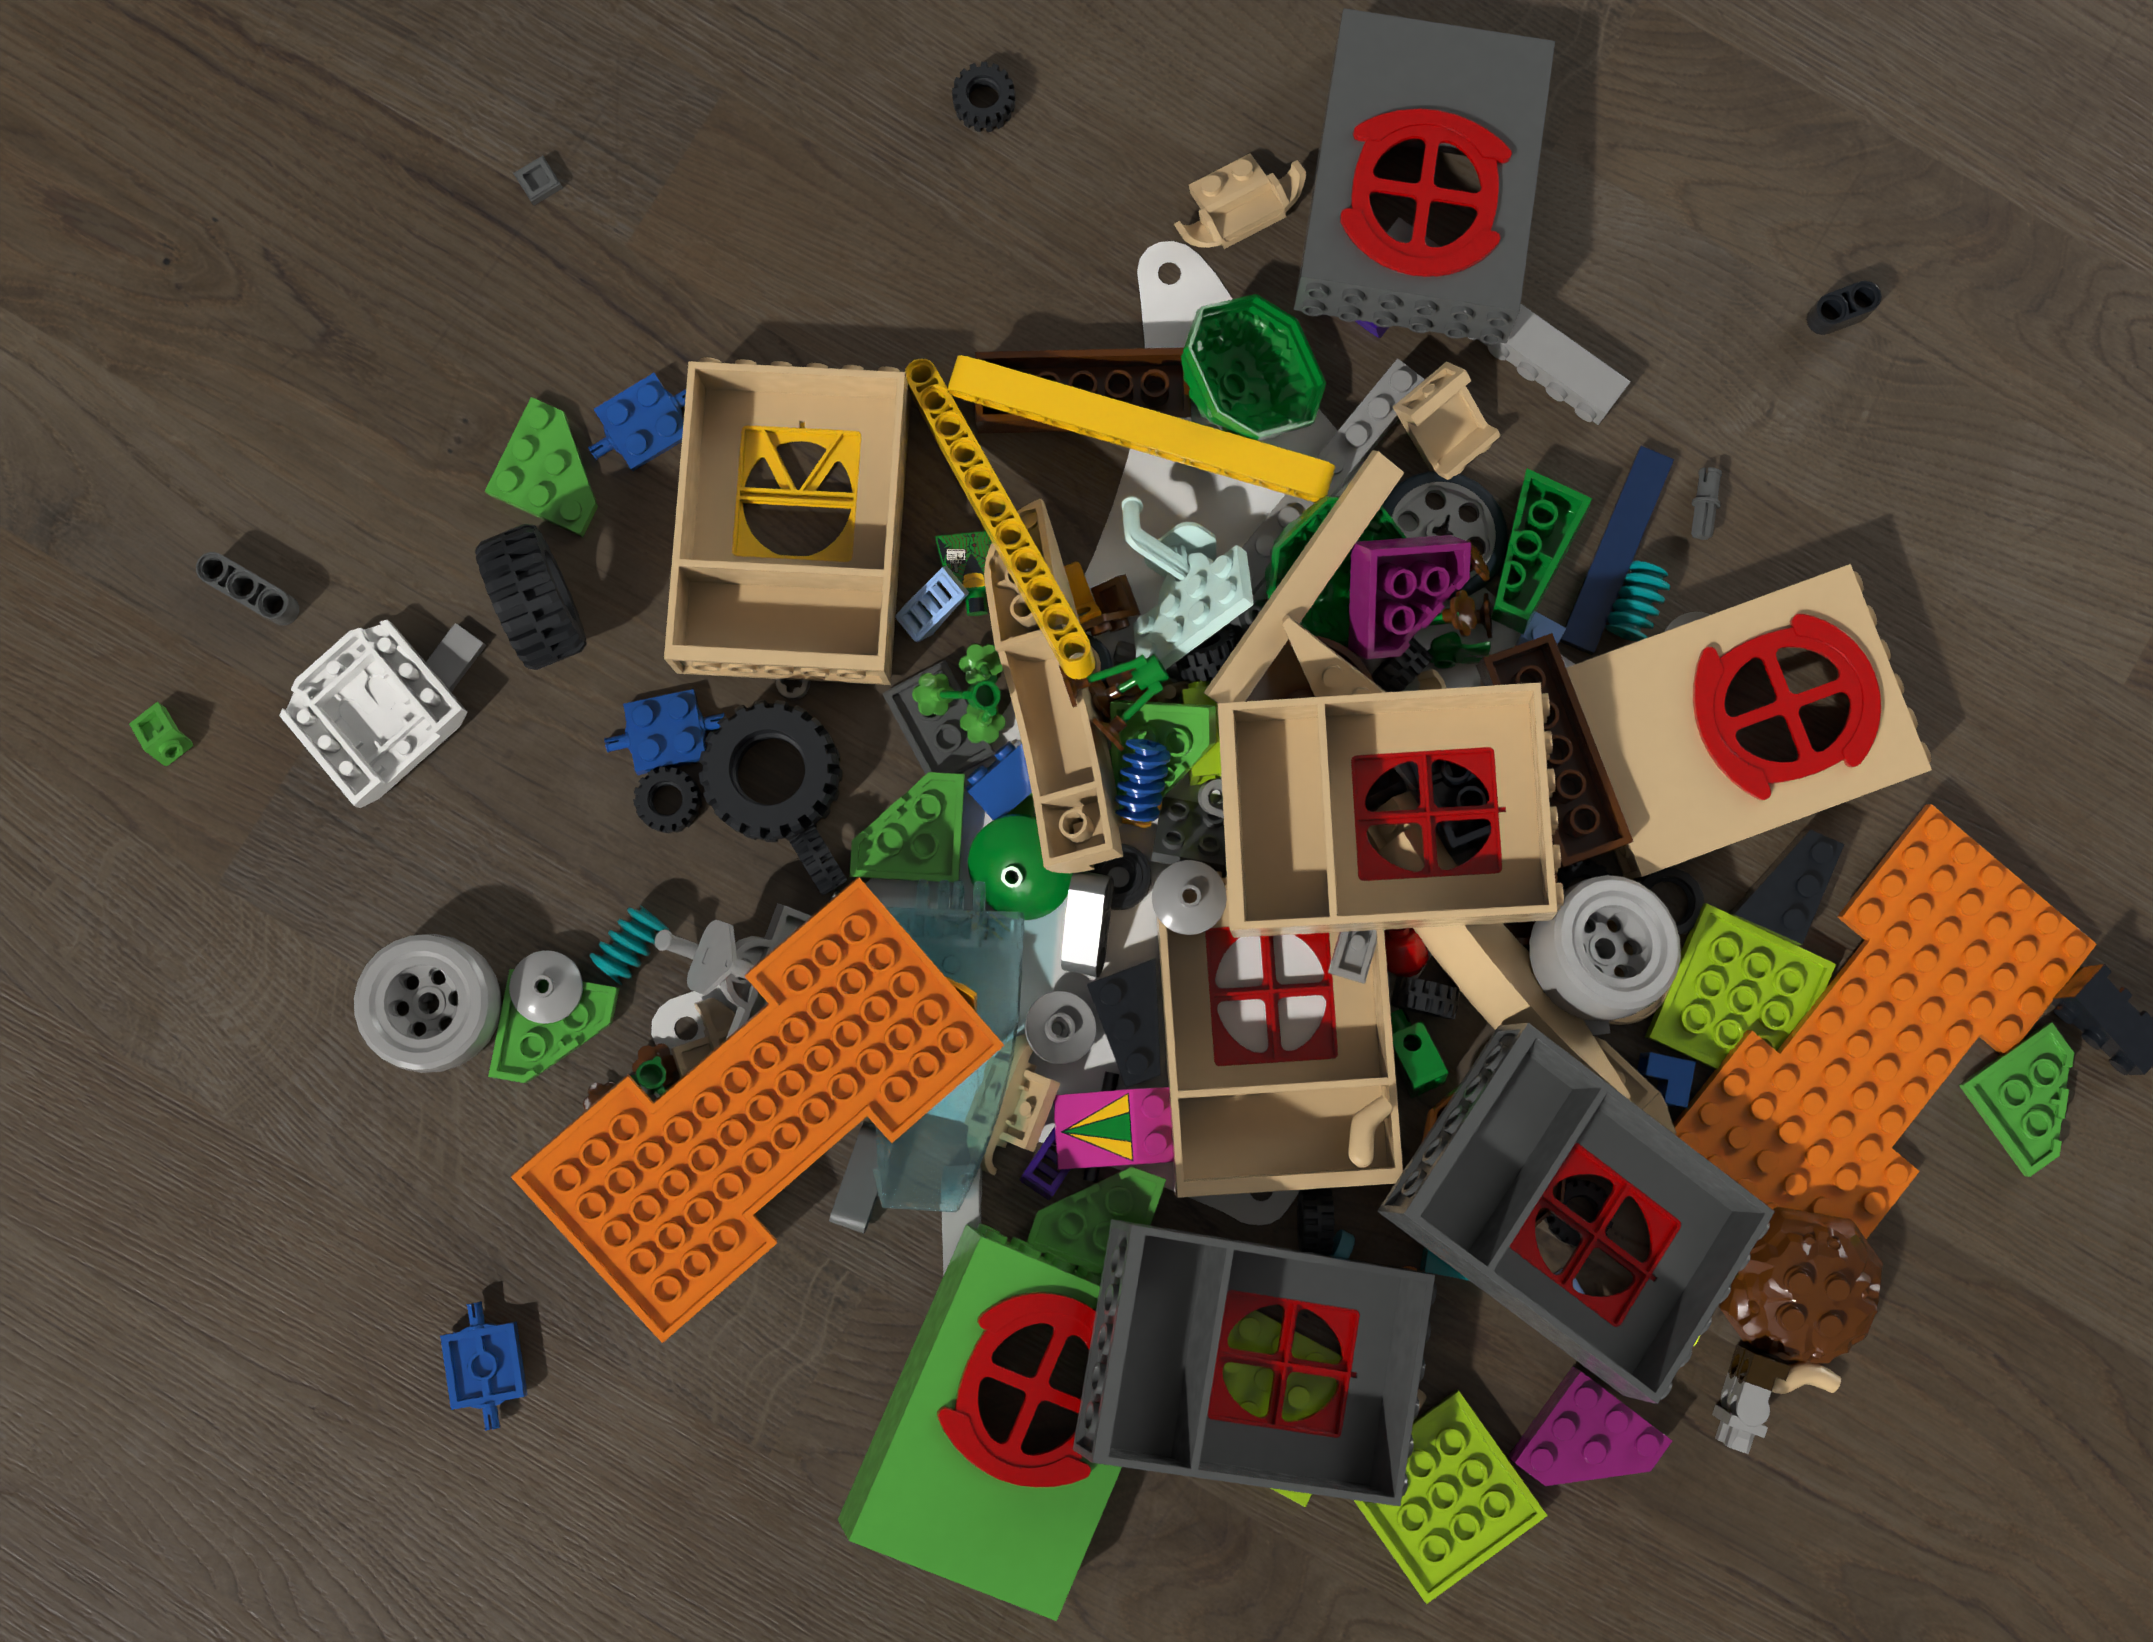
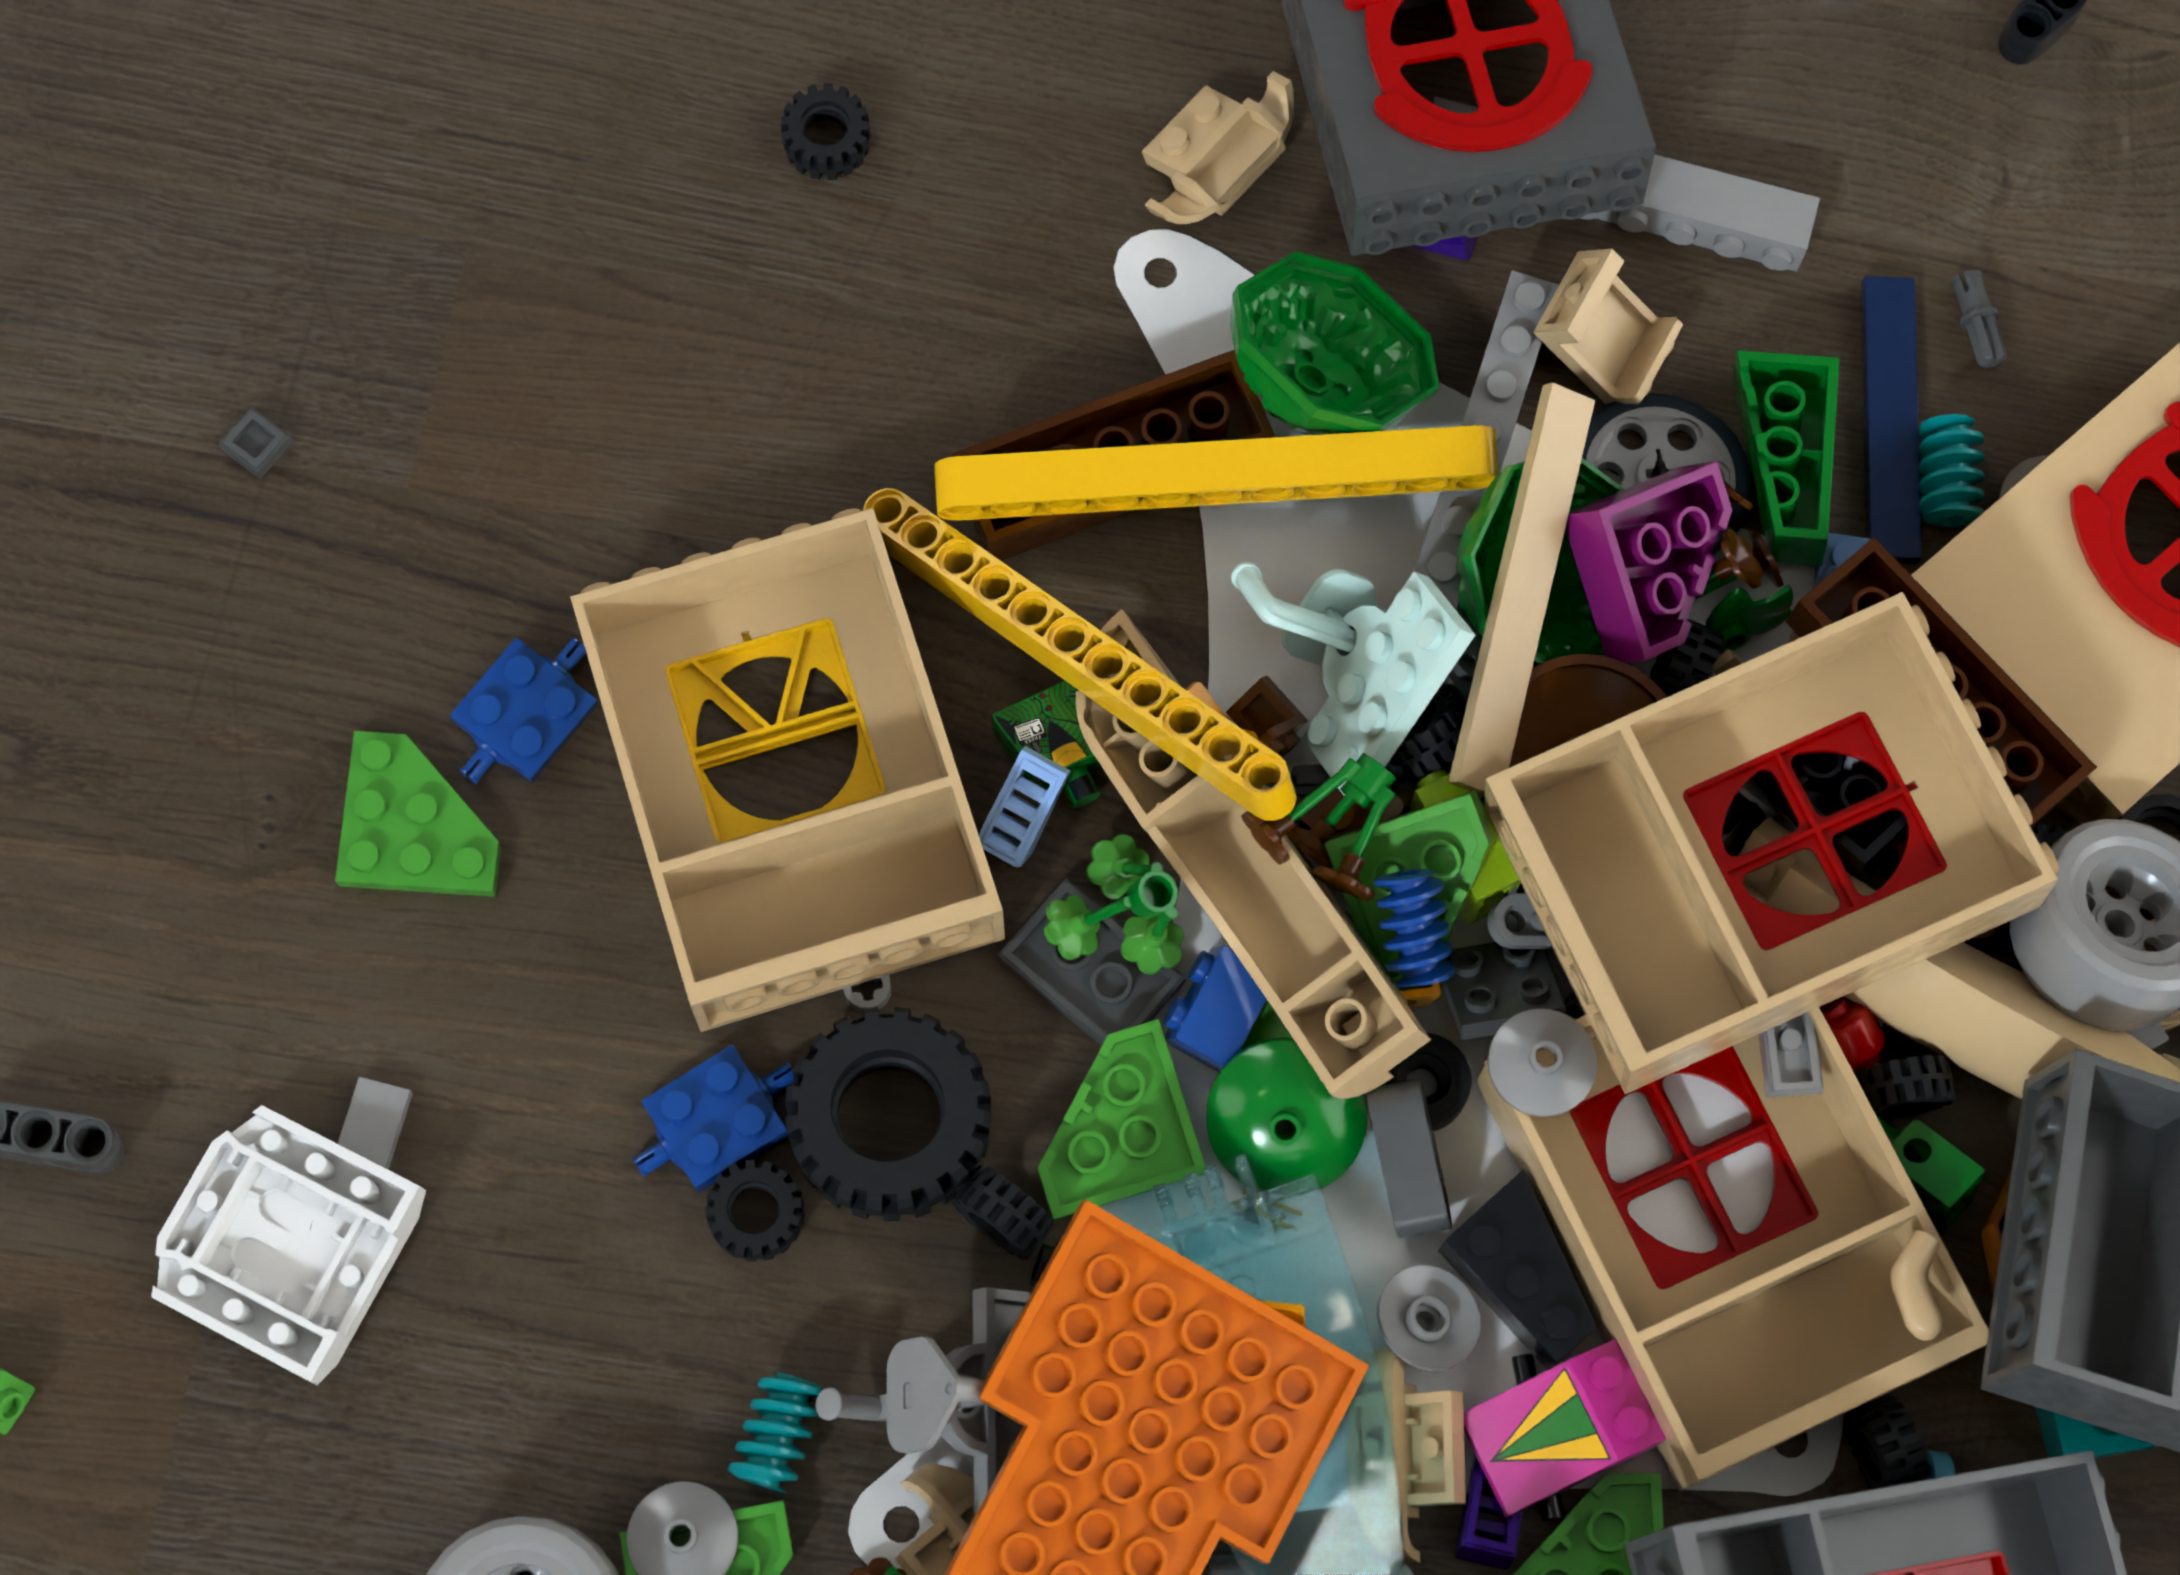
camera: 30 degrees left, 10 degrees down
(530, 596) = (467, 990): black tyre -> none
(1325, 669) = (1587, 689): tan wing -> none

